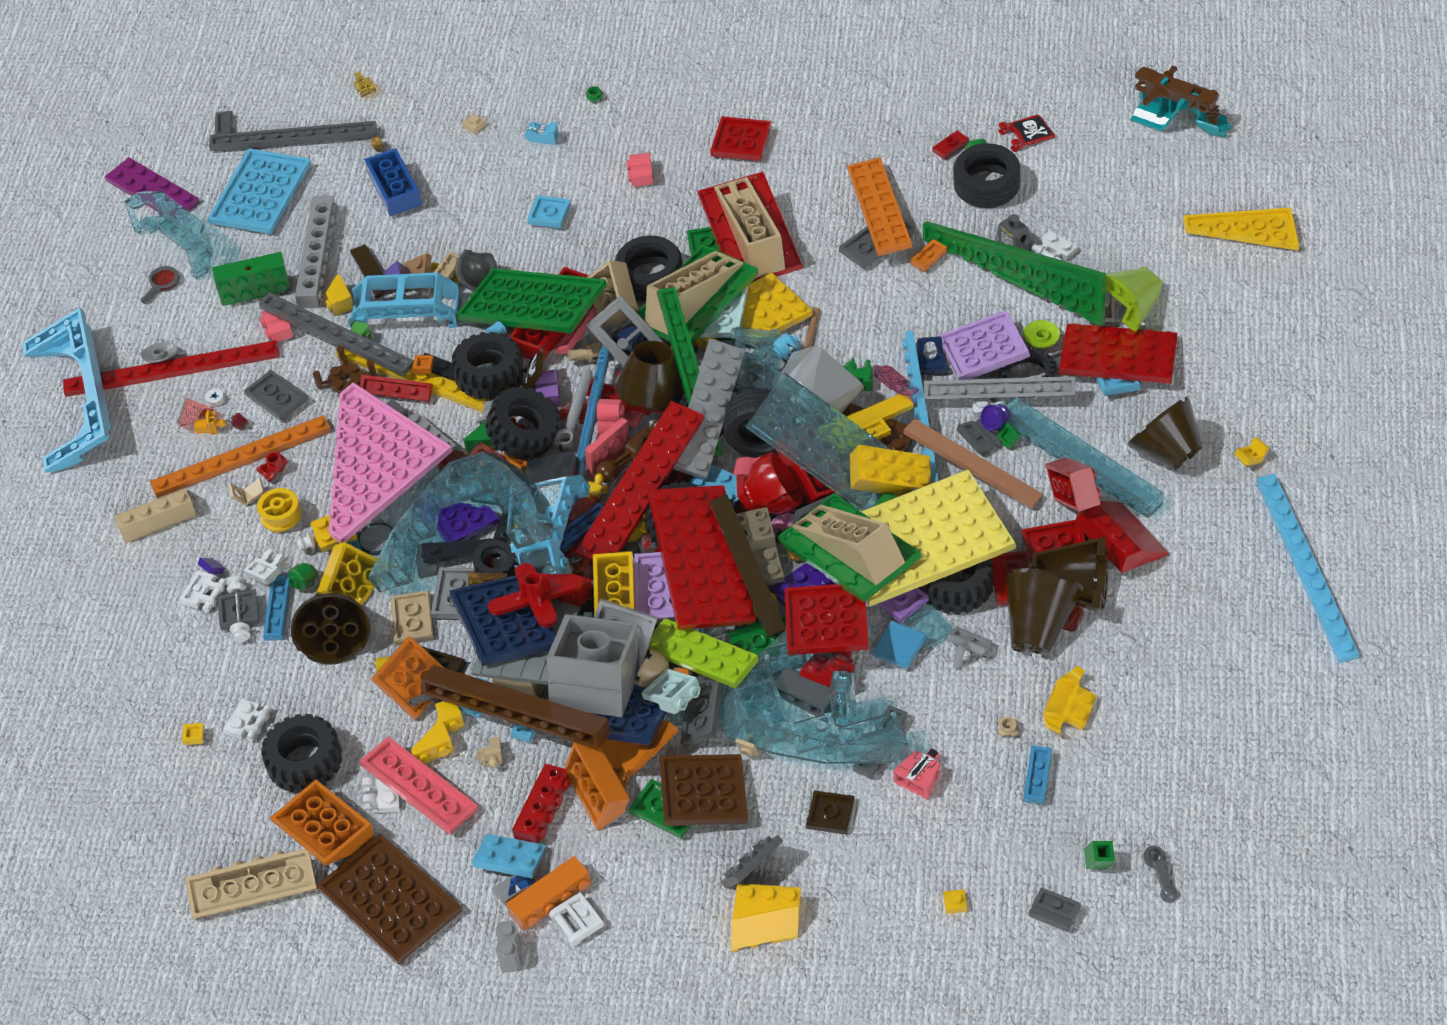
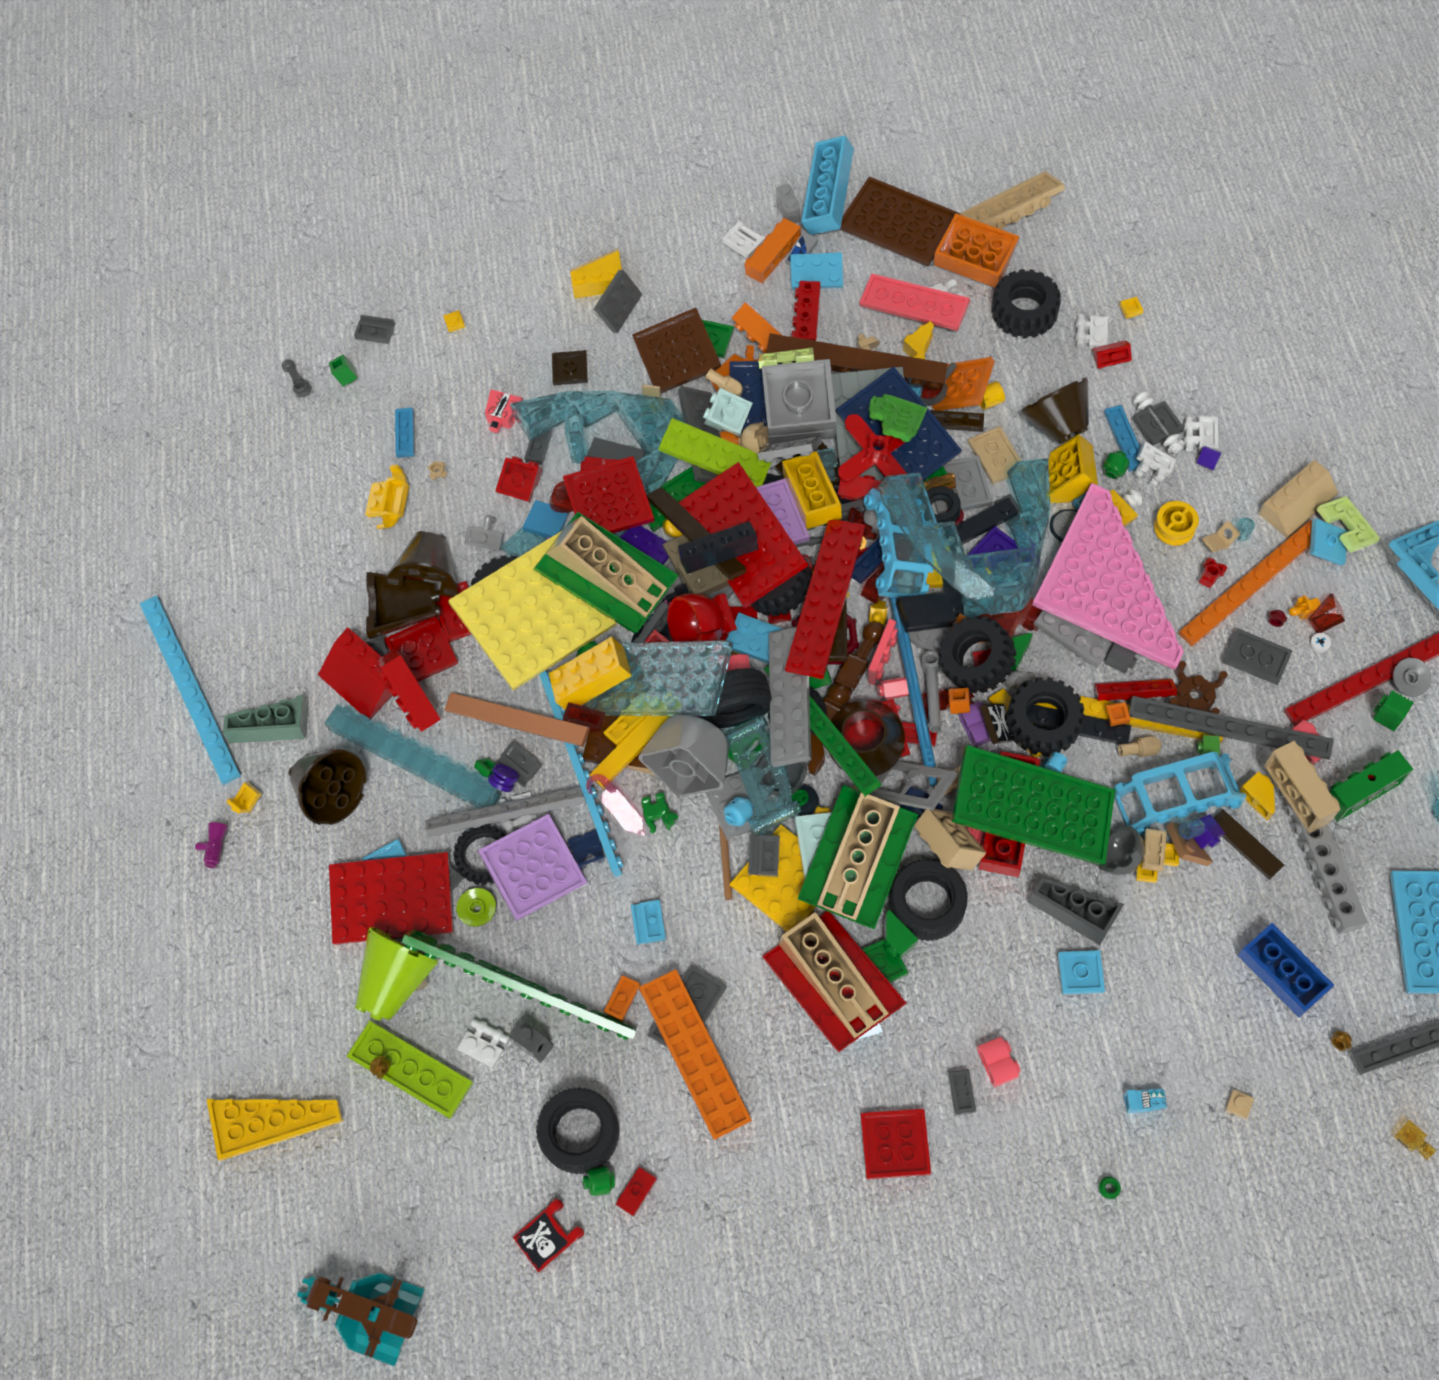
camera: 165 degrees right, 15 degrees up
(119, 488) = (1360, 532): none -> yellowish green plate
(153, 468) = (1326, 542): none -> medium azure plate
(194, 325) = (1392, 710): none -> green brick
(220, 495) = (1245, 527): none -> clear light blue gear
(241, 690) = (1112, 354): none -> red slope
(307, 271) = (1302, 786): none -> tan brick
(412, 267) = (1191, 829): none -> clear light blue gear
(415, 346) = (1141, 747): none -> tan arm
(451, 949) = (827, 185): none -> medium azure brick
(500, 606) = (897, 415): none -> bright green plate
(530, 244) = (1076, 909): none -> dark grey wedge
(553, 386) = (959, 700): none -> orange plate
(602, 704) = (786, 357): none -> yellowish green plate
(663, 716) = (726, 383): none -> tan arm
(677, 159) = (961, 1092): none -> dark grey plate
(686, 242) = (897, 937): none -> green slope
(729, 518) = (718, 547): none -> black brick
(775, 313) = (764, 855): none -> dark grey plate
(875, 667) = (560, 500): none -> clear red cap
(891, 301) = (648, 922): none -> medium azure plate
(905, 444) = (584, 716): none -> clear red slope
(917, 692) = (518, 478): none -> red plate
(1120, 239) = (412, 1070): none -> lime plate
(1143, 234) = (379, 1067): none -> pearl gold plate
(1221, 507) = (268, 723): none -> sand green wedge
(1283, 425) = (214, 845): none -> magenta piece

